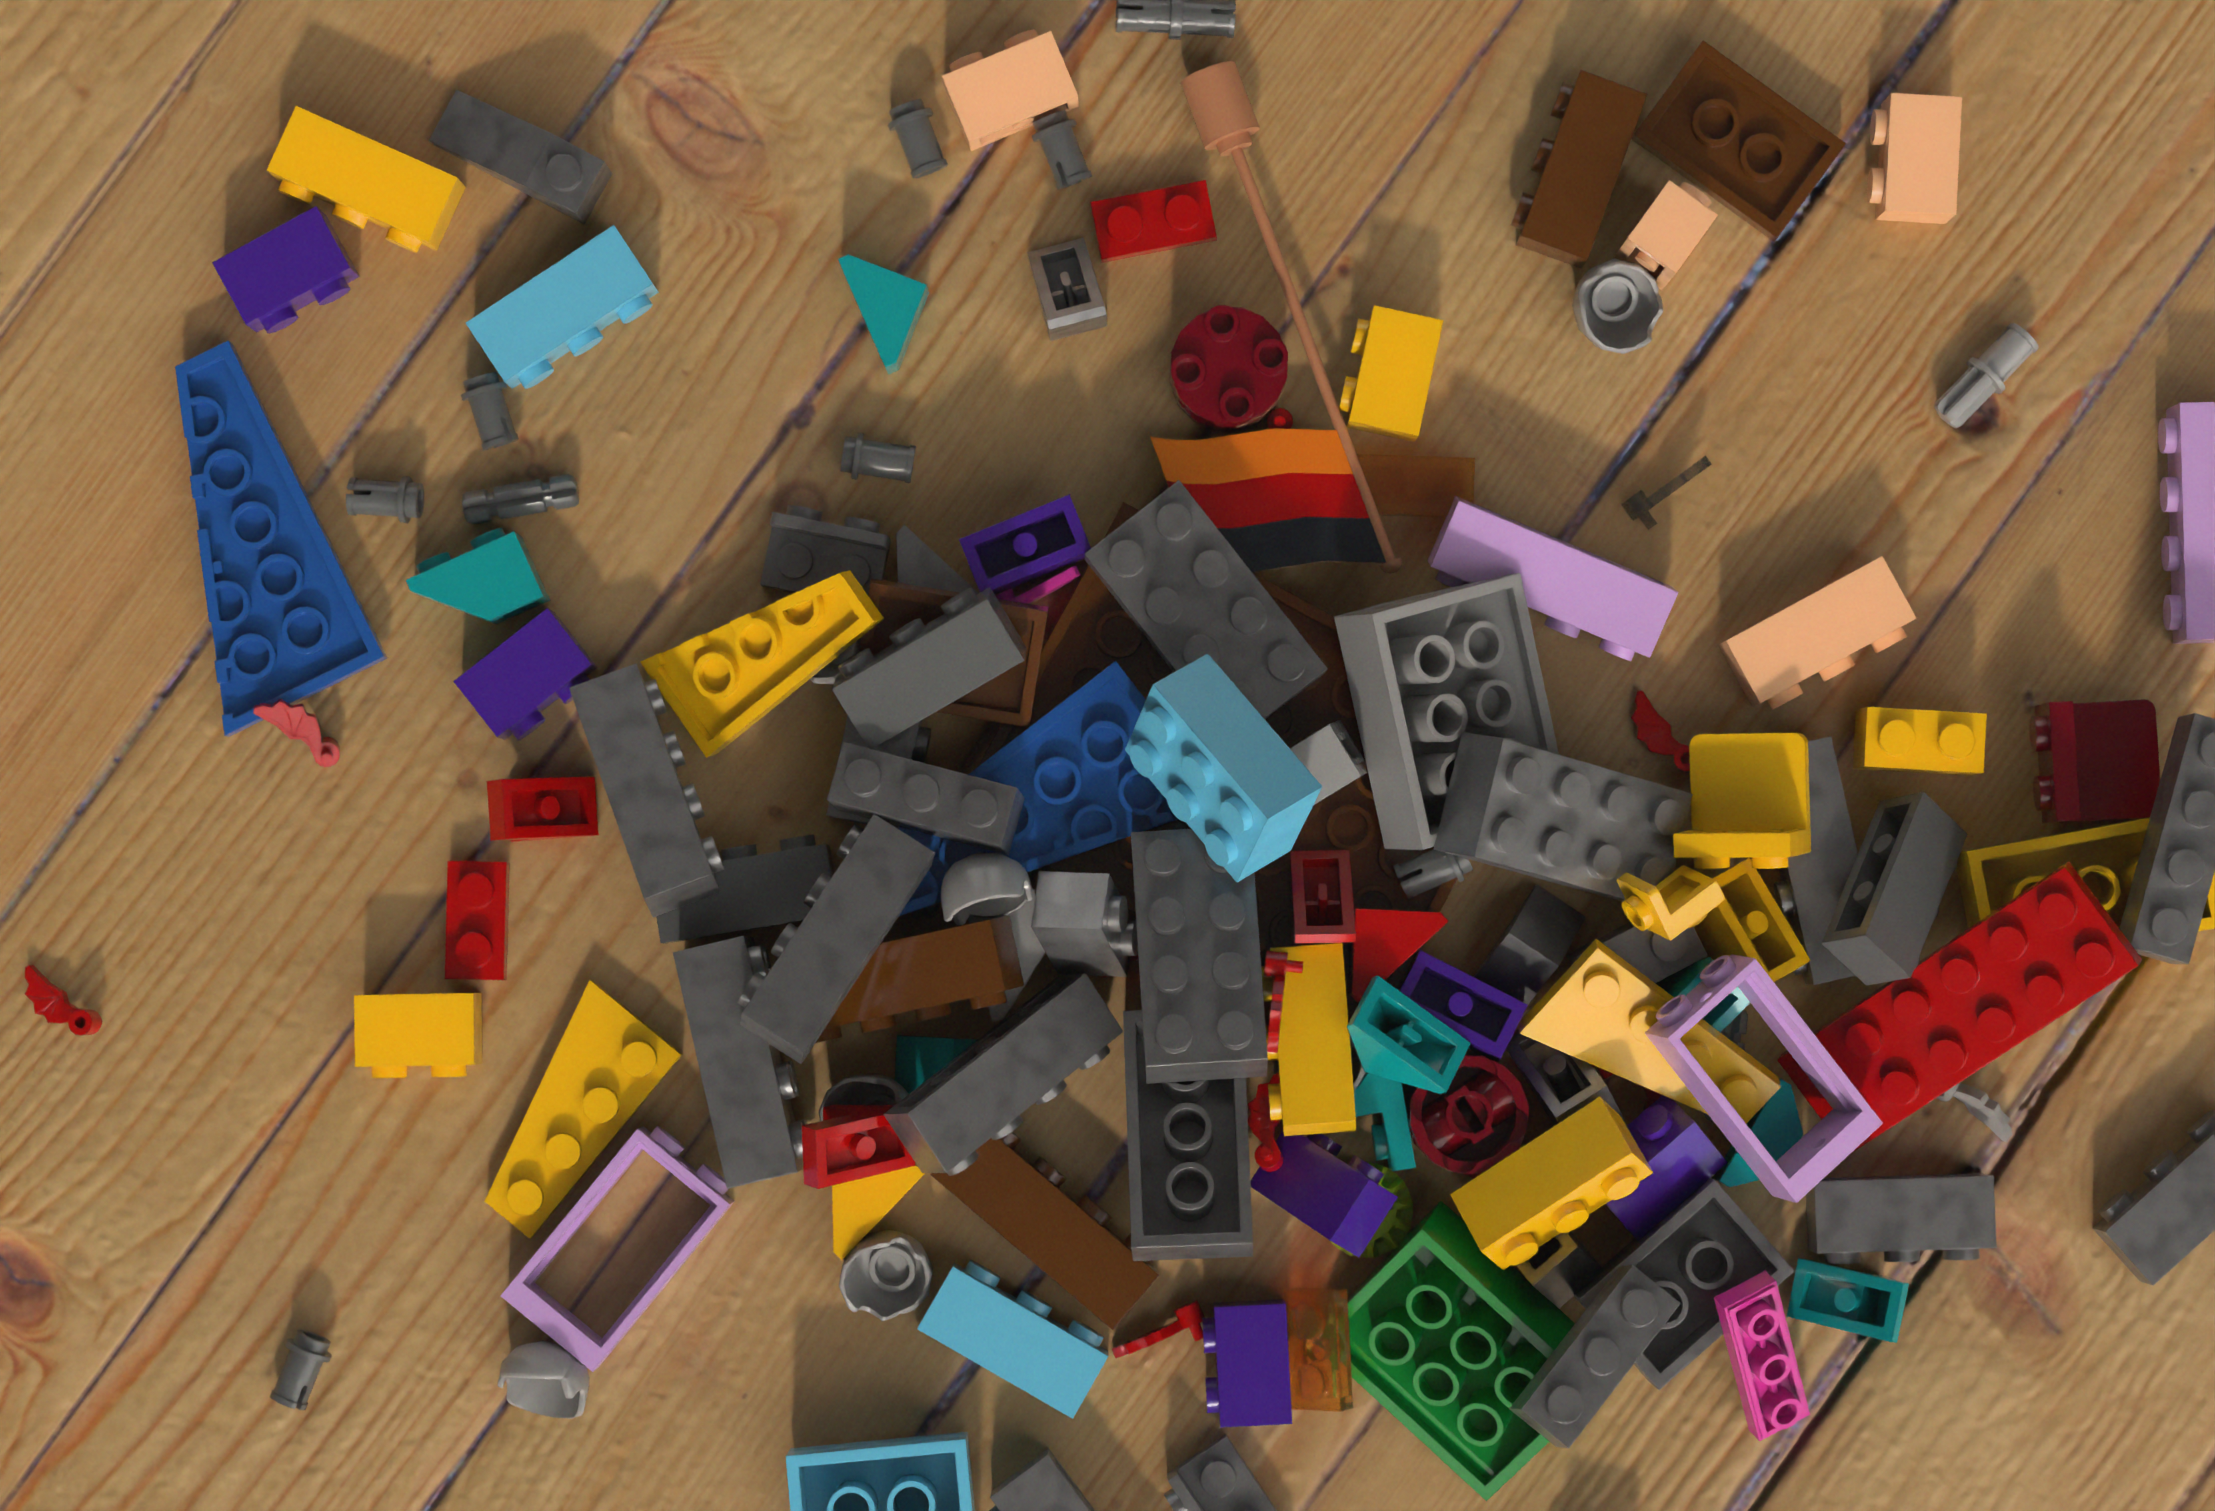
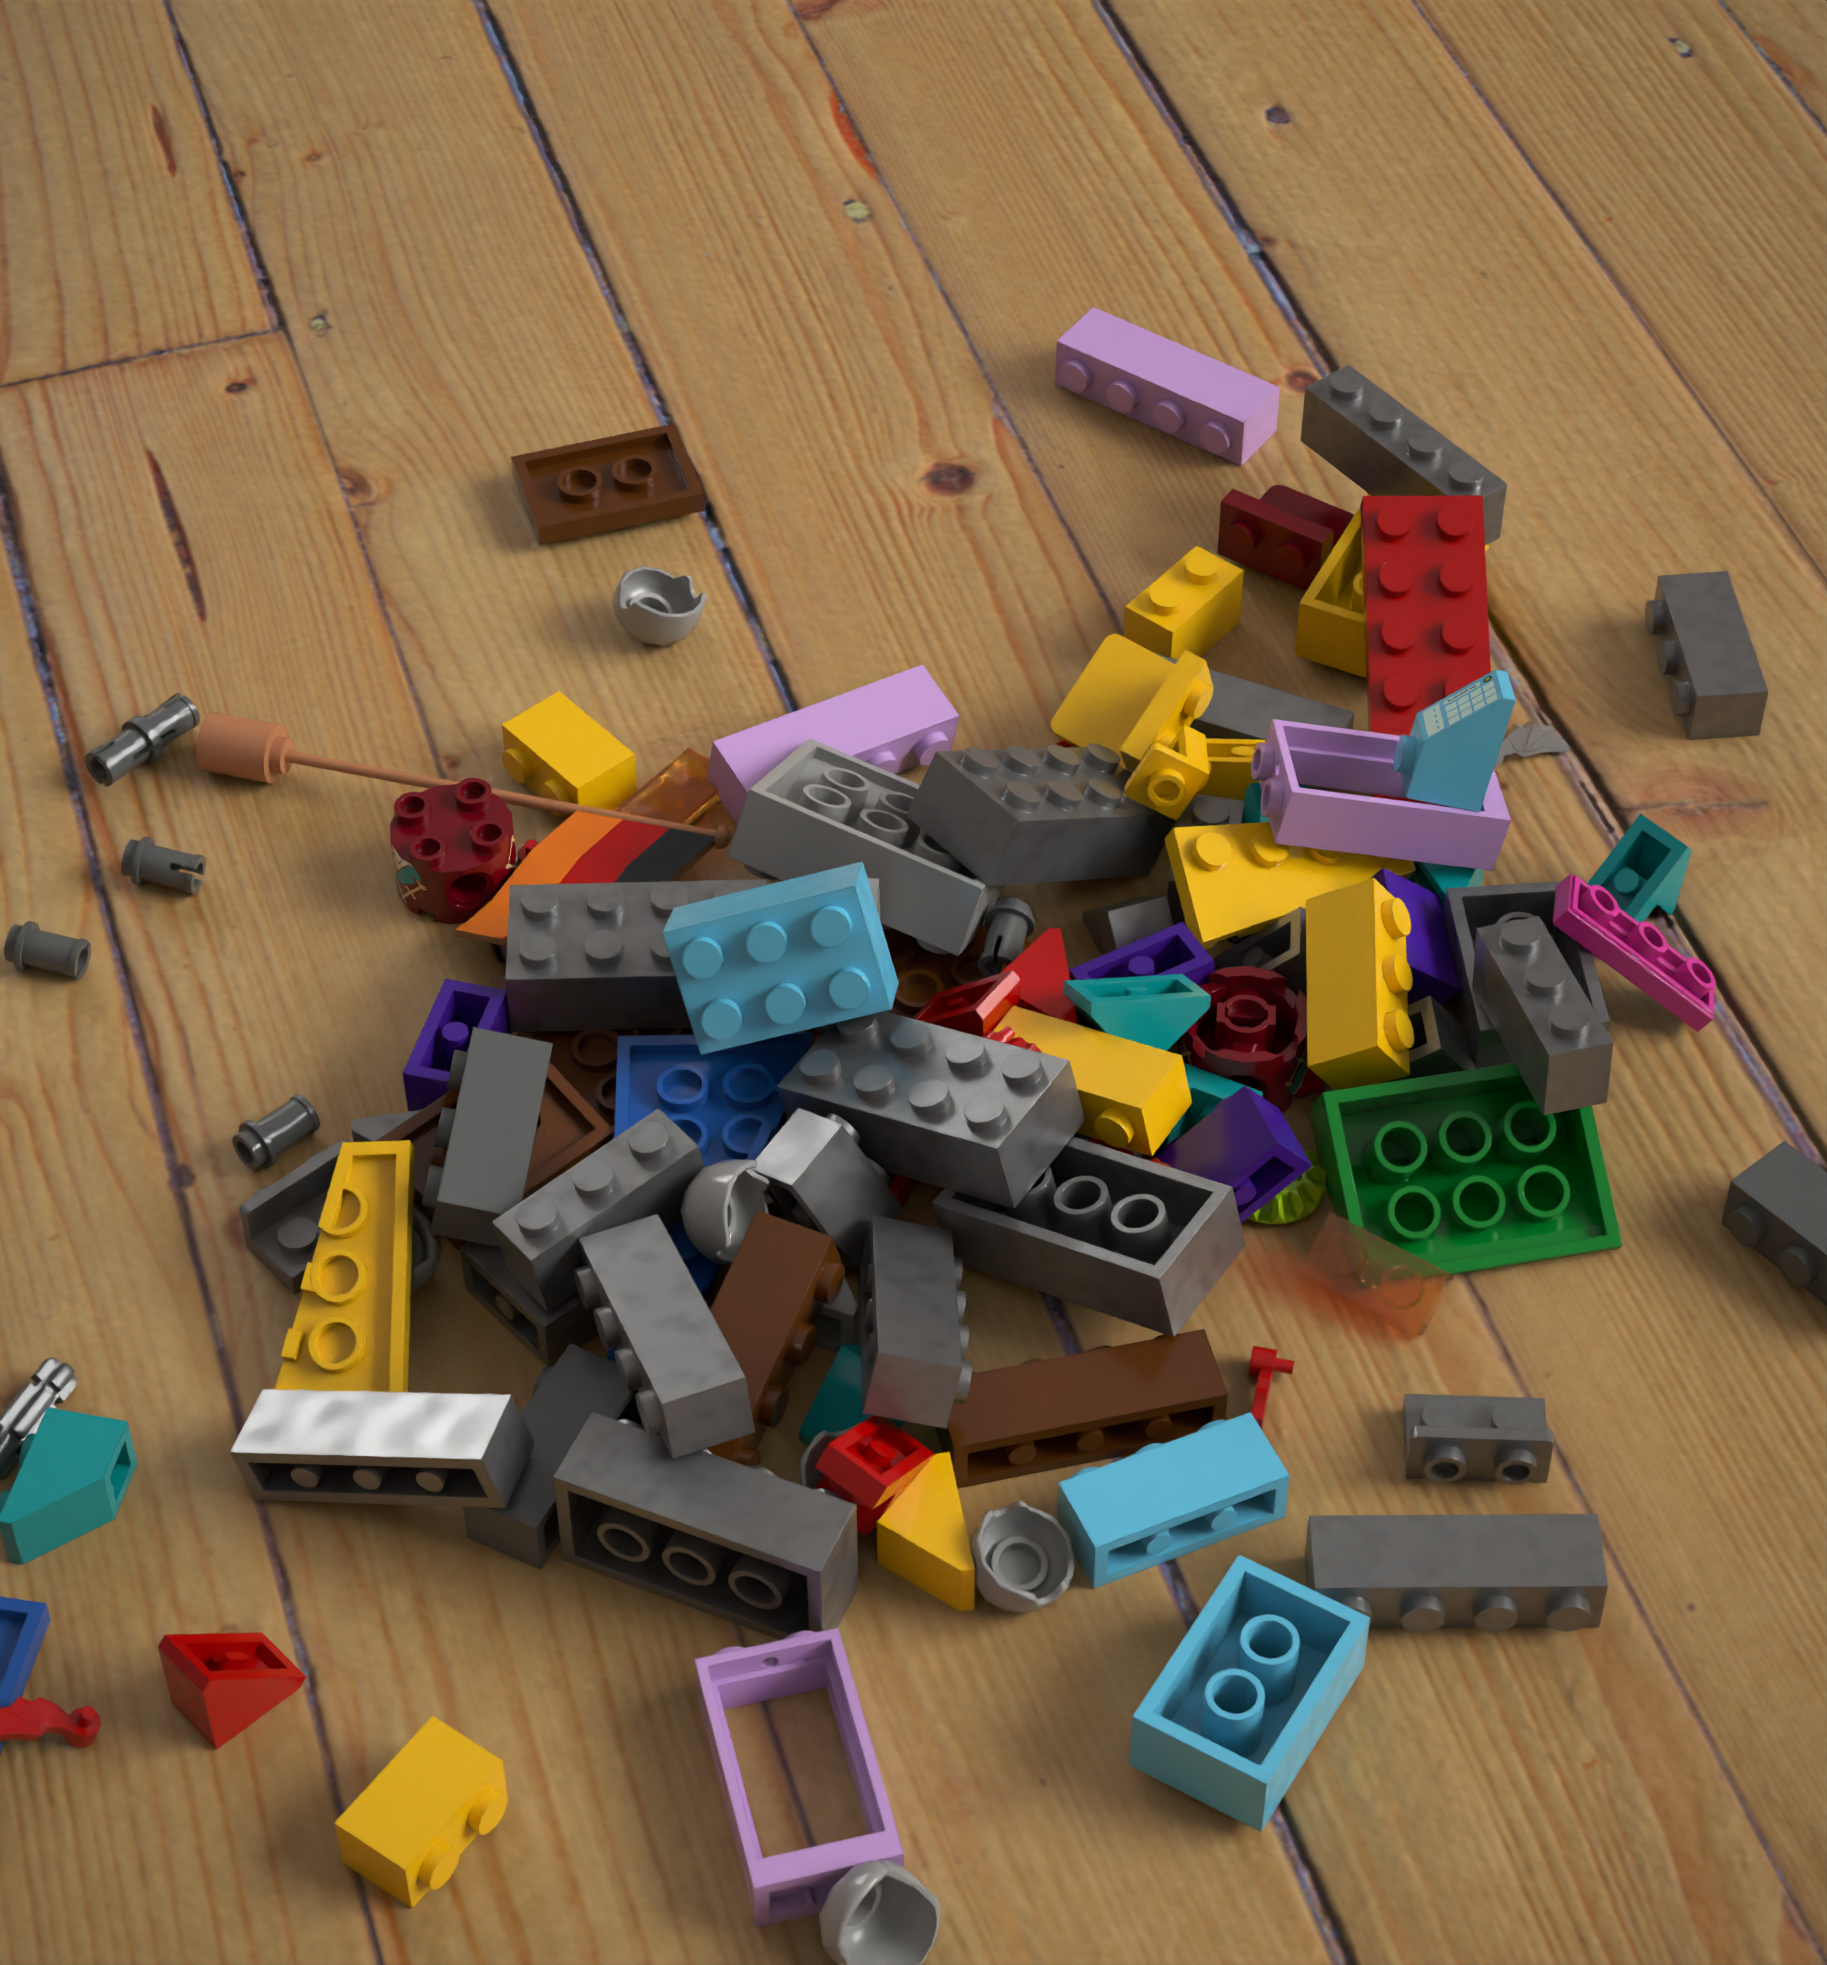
camera: 55 degrees left, 40 degrees down
(424, 823) = (226, 1680): none -> red slope
(477, 920) = (361, 1700): red plate -> none
(526, 676) = (184, 1503): dark purple brick -> none
(542, 808) = (314, 1573): red slope -> none
(587, 1096) = (629, 1733): yellow wing -> none
(888, 305) = (151, 1047): teal slope -> none
(1009, 88) = (76, 866): light nougat brick -> none
(1067, 289) = (286, 923): flat silver slope -> none
(1153, 221) = (284, 849): red plate -> none
(1250, 1363) = (1348, 1329): dark purple brick -> none
(1578, 168) = (530, 574): reddish brown brick -> none
(1639, 504) = (829, 684): clear smoke piece -> none
(1668, 231) = (632, 522): light nougat brick -> none
(1813, 1133) = (1456, 744): none -> medium azure slope
(1819, 634) = (1038, 630): light nougat brick -> none
(1895, 889) = (1293, 661): dark grey brick -> none
(1901, 1216) = (1580, 817): flat silver brick -> none
(1916, 158) = (728, 397): light nougat brick -> none
(1985, 375) = (929, 447): light grey axle -> none

